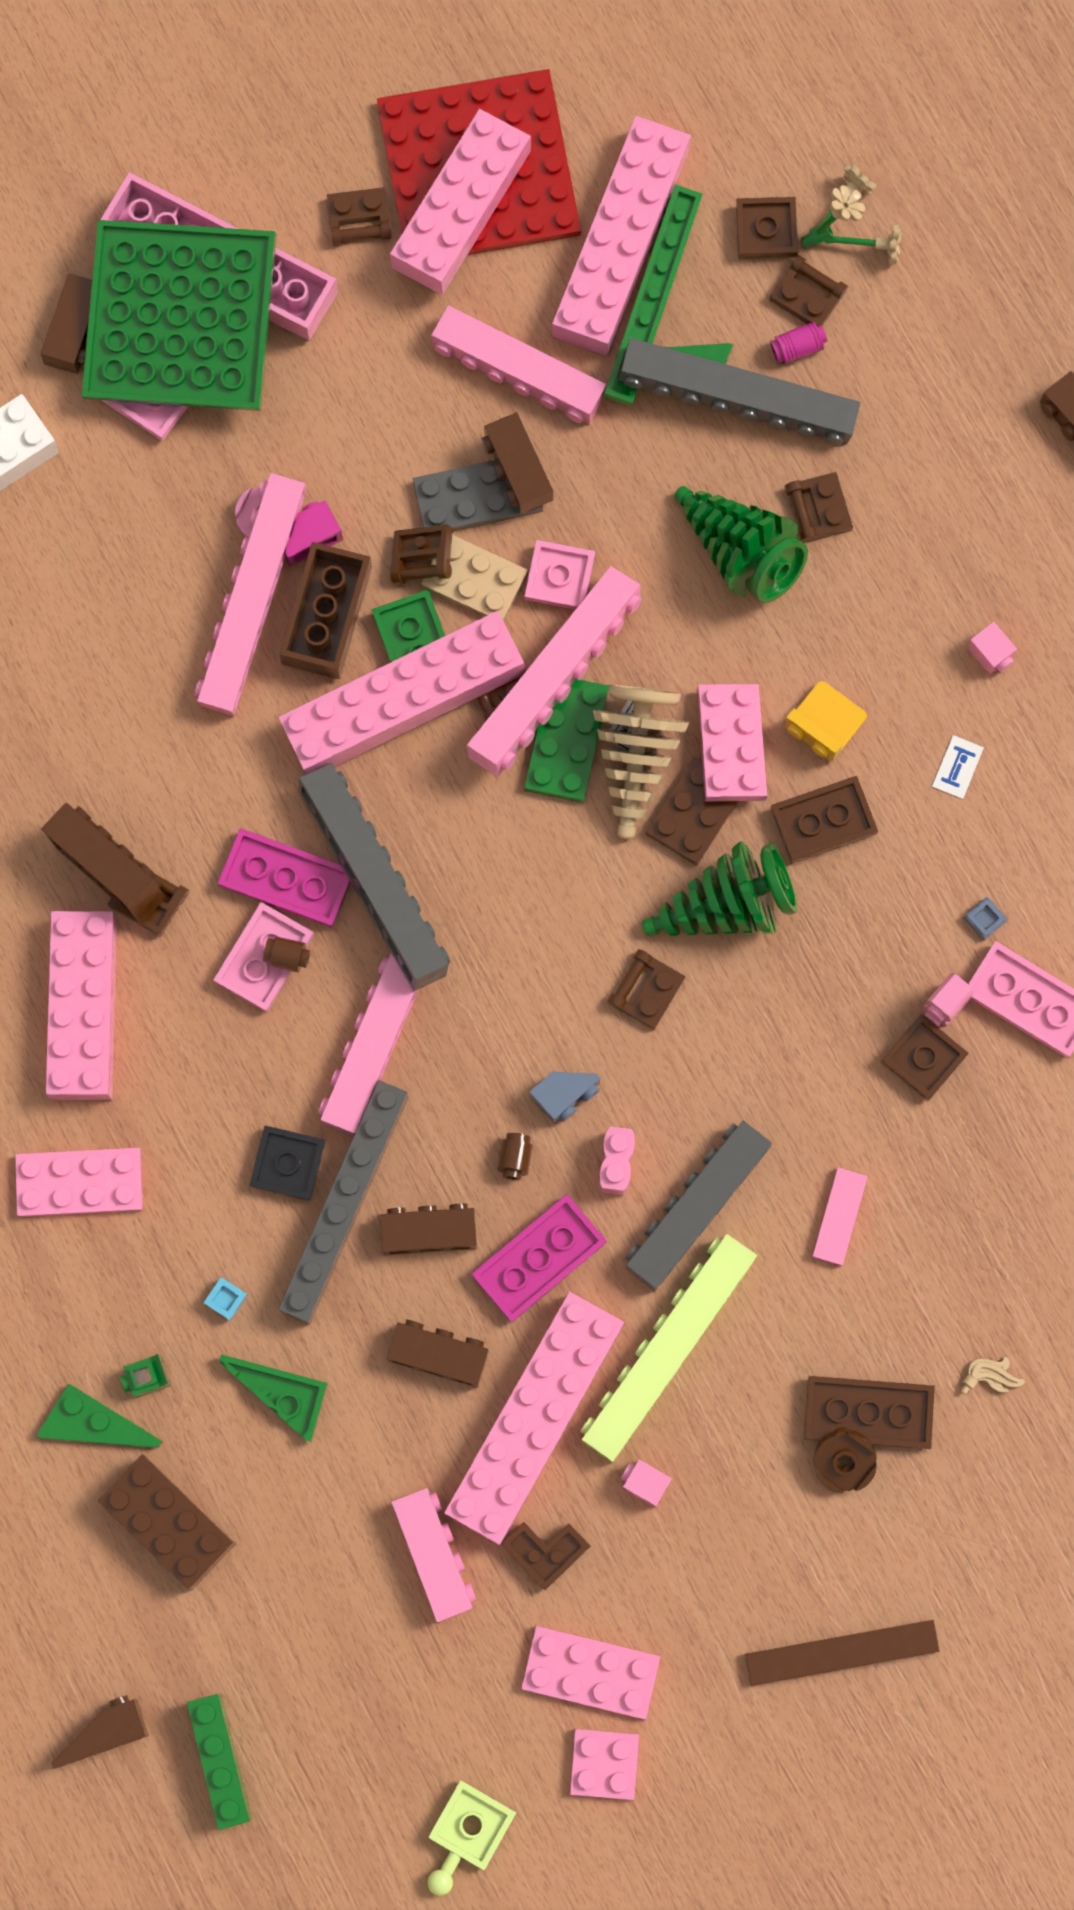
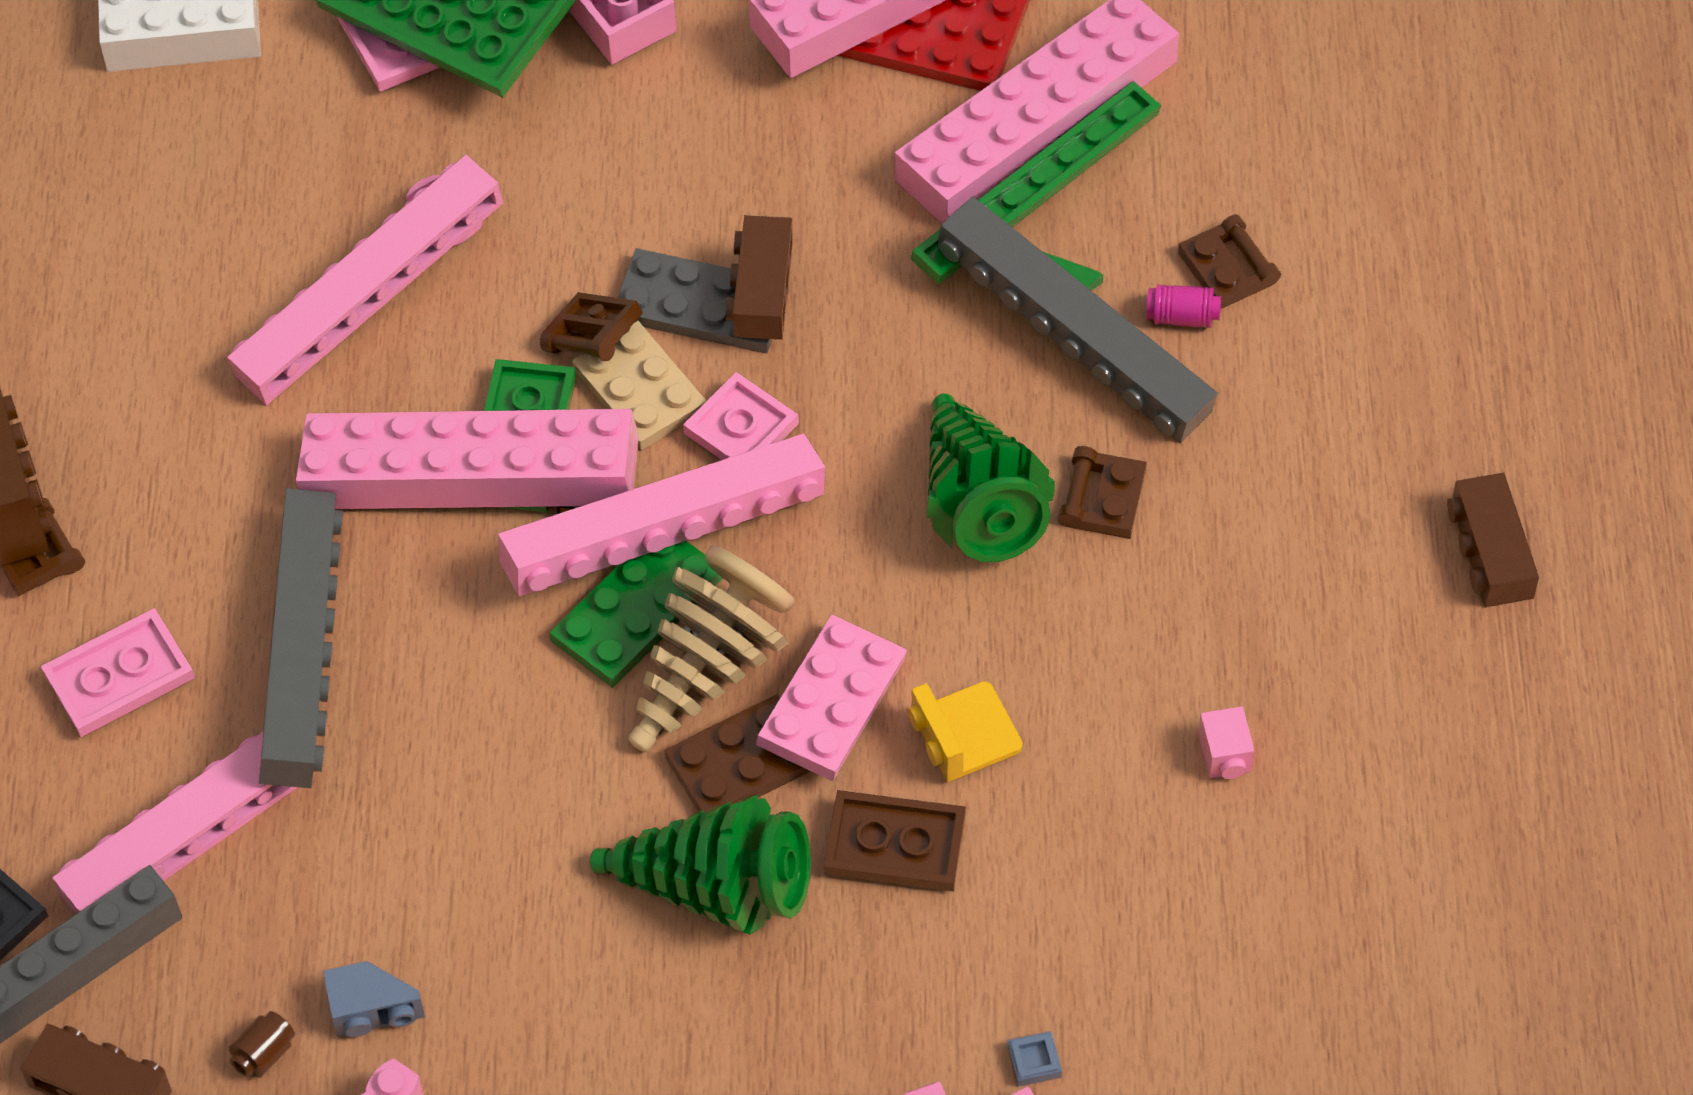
camera: 30 degrees right, 20 degrees down
(285, 878) = (202, 598): dark pink plate -> none
(286, 954) = (139, 672): reddish brown brick -> none
(312, 525) = (479, 252): dark pink slope -> none
(325, 610) = (440, 333): reddish brown brick -> none
(518, 365) = (833, 186): bright pink brick -> none
(654, 996) = (558, 944): reddish brown plate -> none
(766, 227) = (1218, 172): reddish brown plate -> none
(845, 207) = (1324, 171): tan plant -> none
(958, 767) = (1105, 864): white sticker -> none

